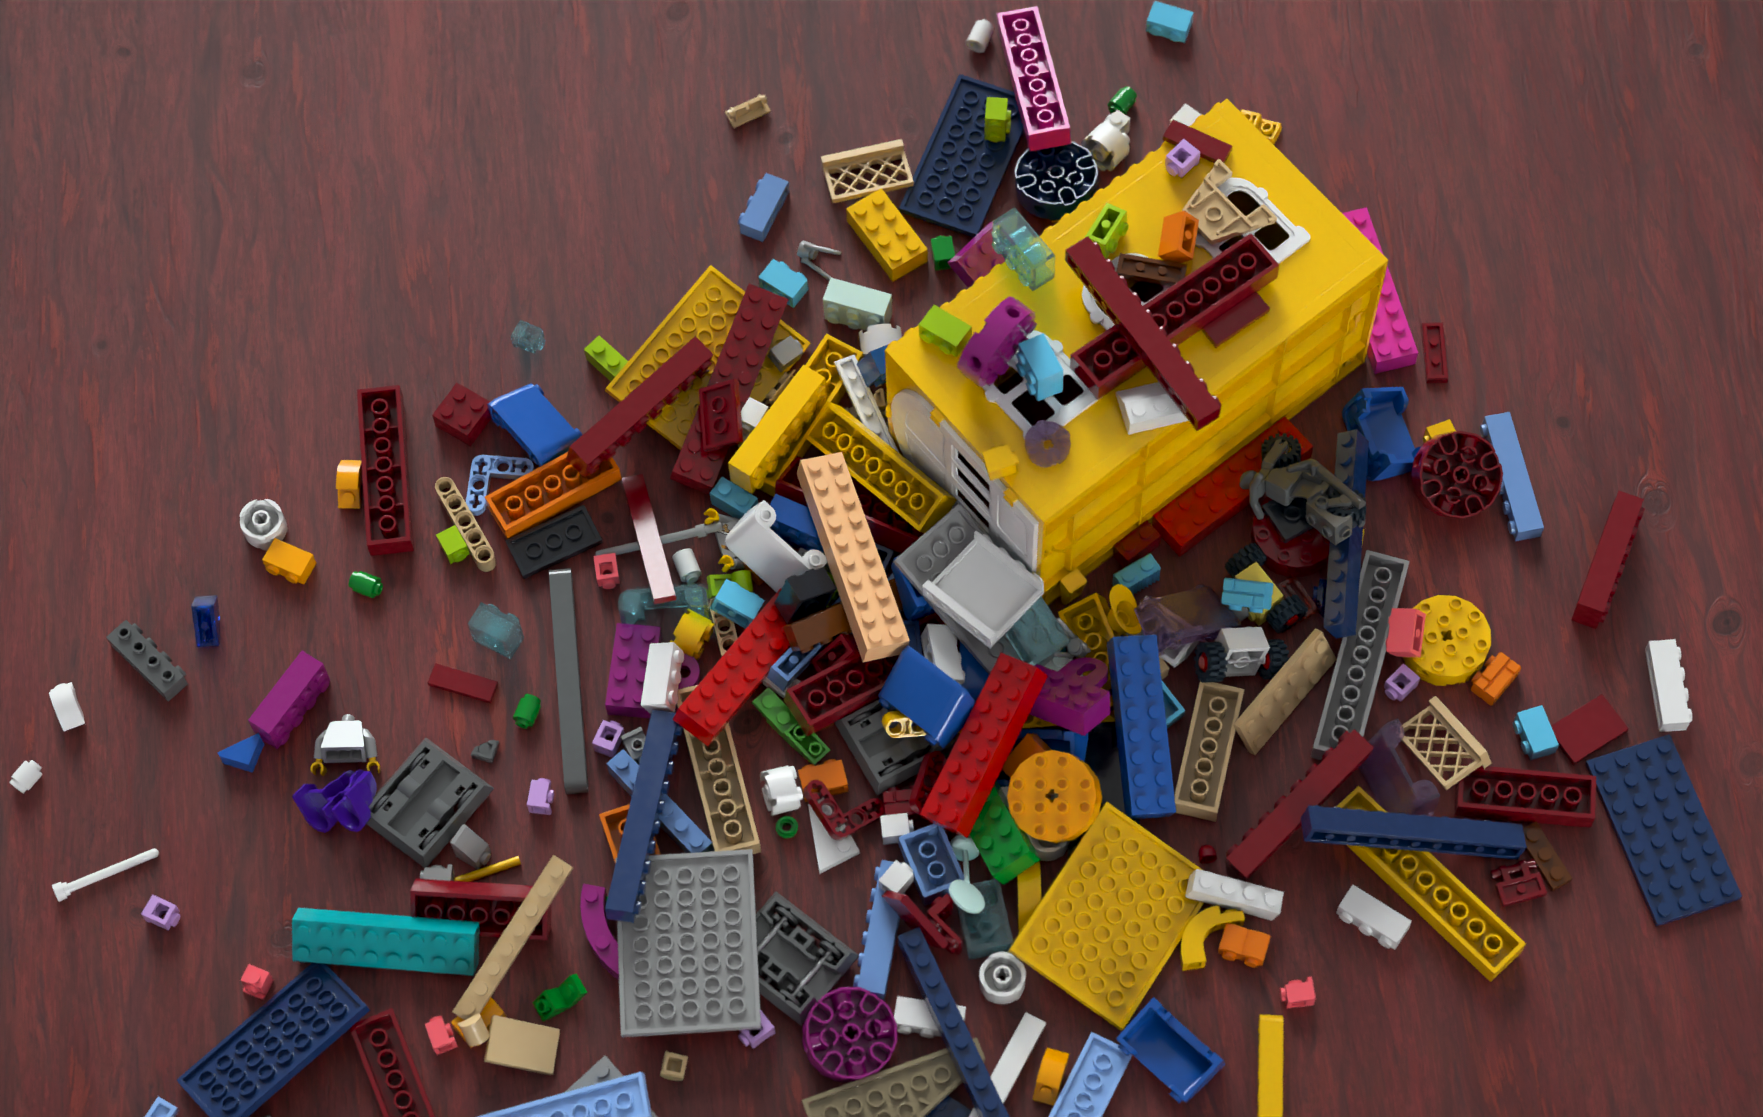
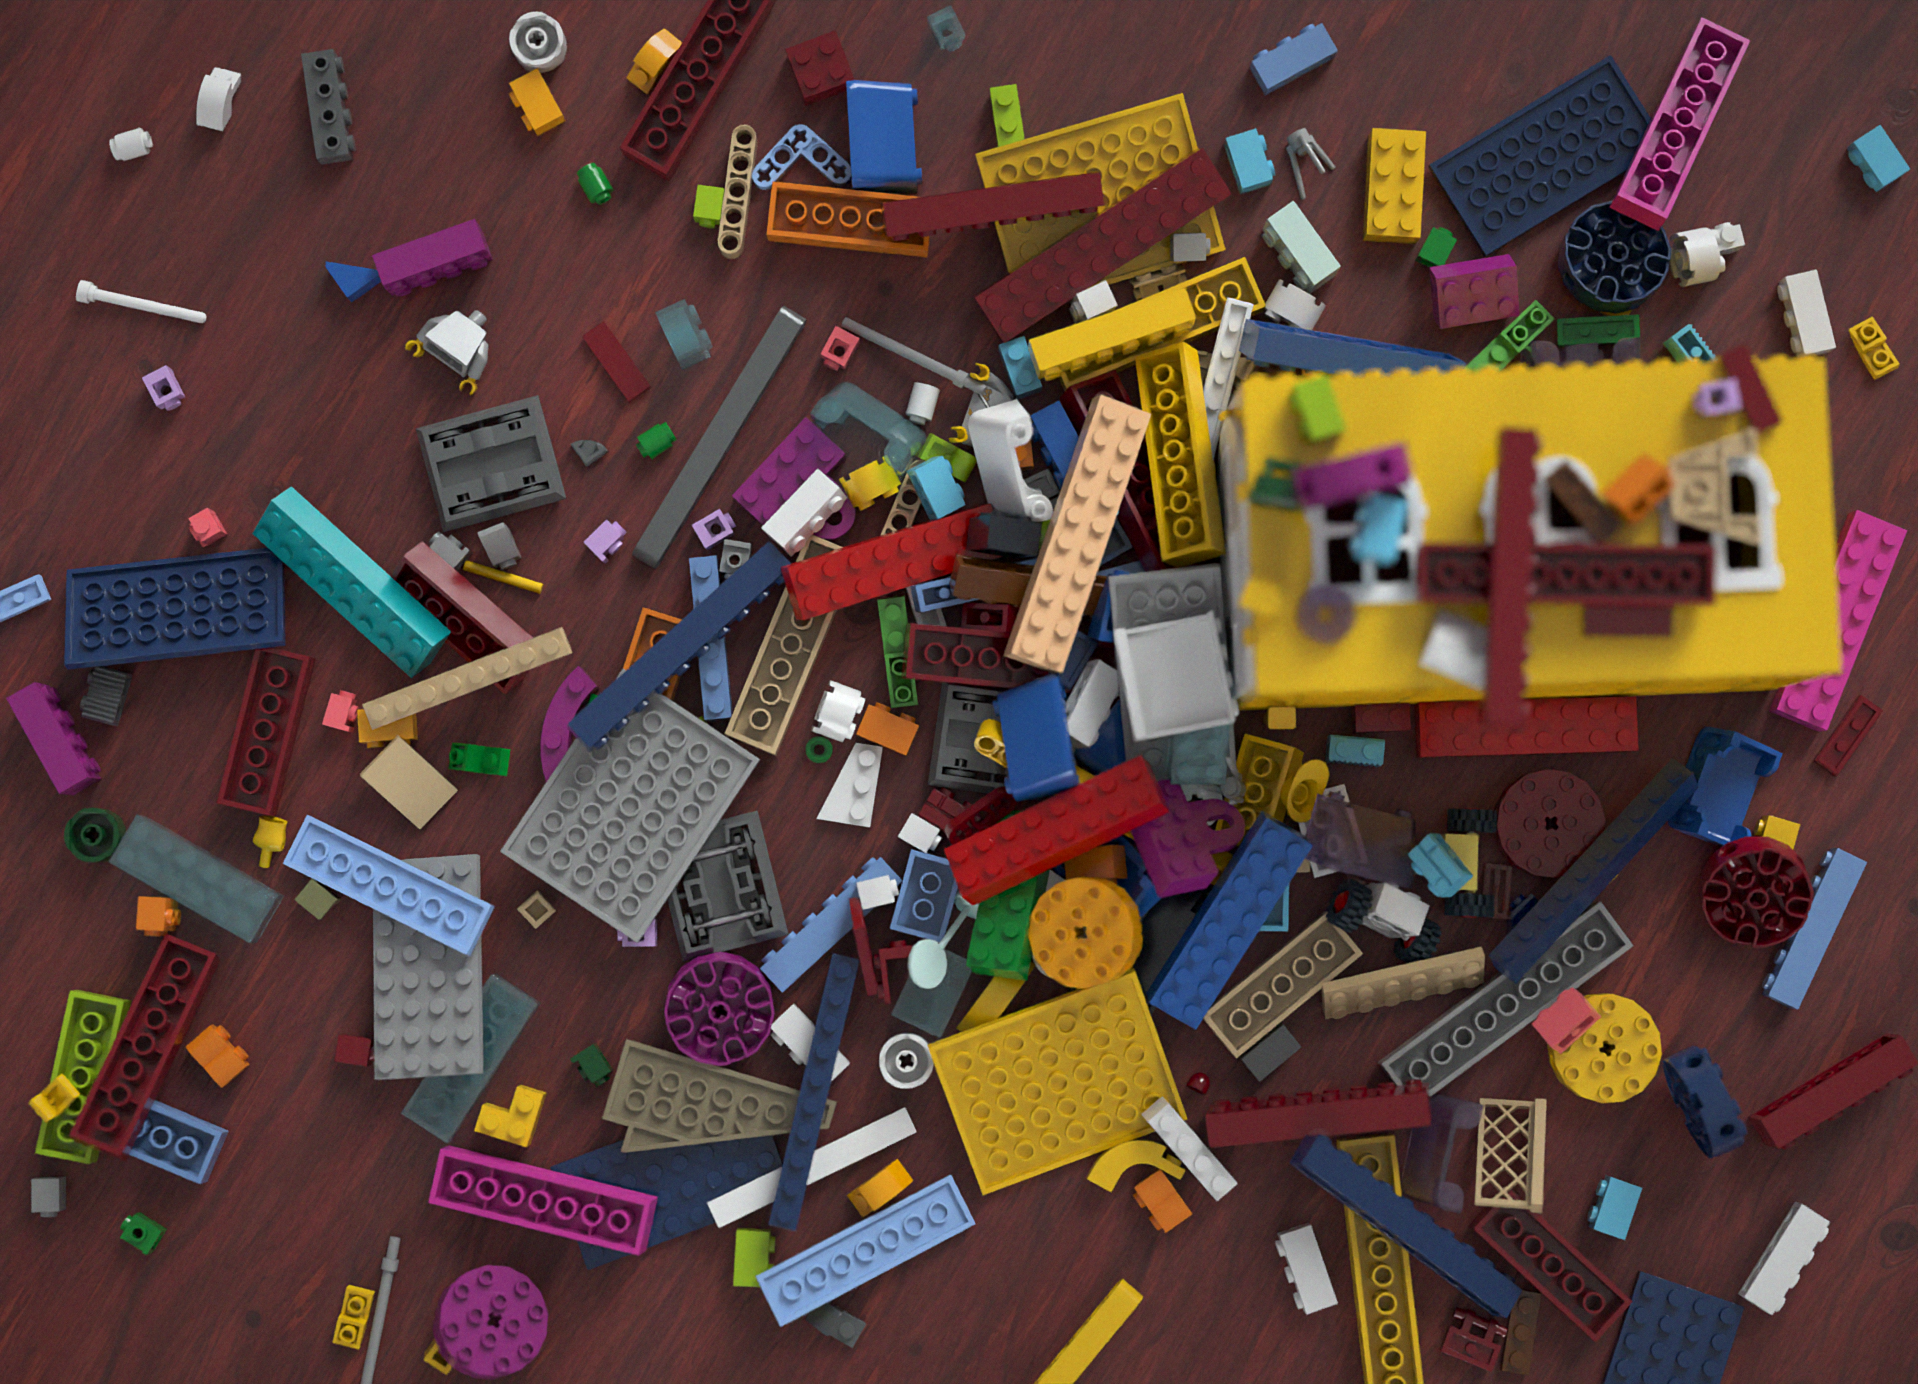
camera: 30 degrees right, 20 degrees up
(206, 620) = (413, 106): clear blue slope -> none
(341, 800) = (428, 401): dark purple piece -> none
(474, 1030) = (370, 739): tan brick -> none
(553, 541) = (811, 276): black plate -> none
(648, 539) = (899, 352): tile -> none
(720, 415) = (1063, 278): dark red tile -> none
(837, 818) = (870, 781): dark red beam -> none
(863, 159) = (1432, 77): tan fence -> none
(959, 393) = (1276, 491): none -> dark green piece
(980, 36) = (1667, 25): white brick -> none
(997, 119) = (1603, 144): lime brick -> none
(1023, 249) = (1466, 381): clear light blue brick -> none
(1109, 228) = (1571, 424): lime brick -> none
(1122, 100) = (1755, 214): green brick -> none
(1169, 1051) = (1009, 1255): blue windscreen -> none
(1234, 799) = (1269, 1052): none -> dark grey hinge
(1286, 477) = (1592, 795): dark grey piece -> none
(1288, 520) = (1555, 811): black plate -> none
(1298, 993) = (1175, 1287): coral brick -> none
(1402, 676) = (1534, 1058): lavender brick -> none
(1495, 678) = (1621, 1122): orange brick -> none
(1533, 618) = (1704, 1101): none -> dark blue brick
(1588, 729) = (1669, 1240): dark red tile -> none

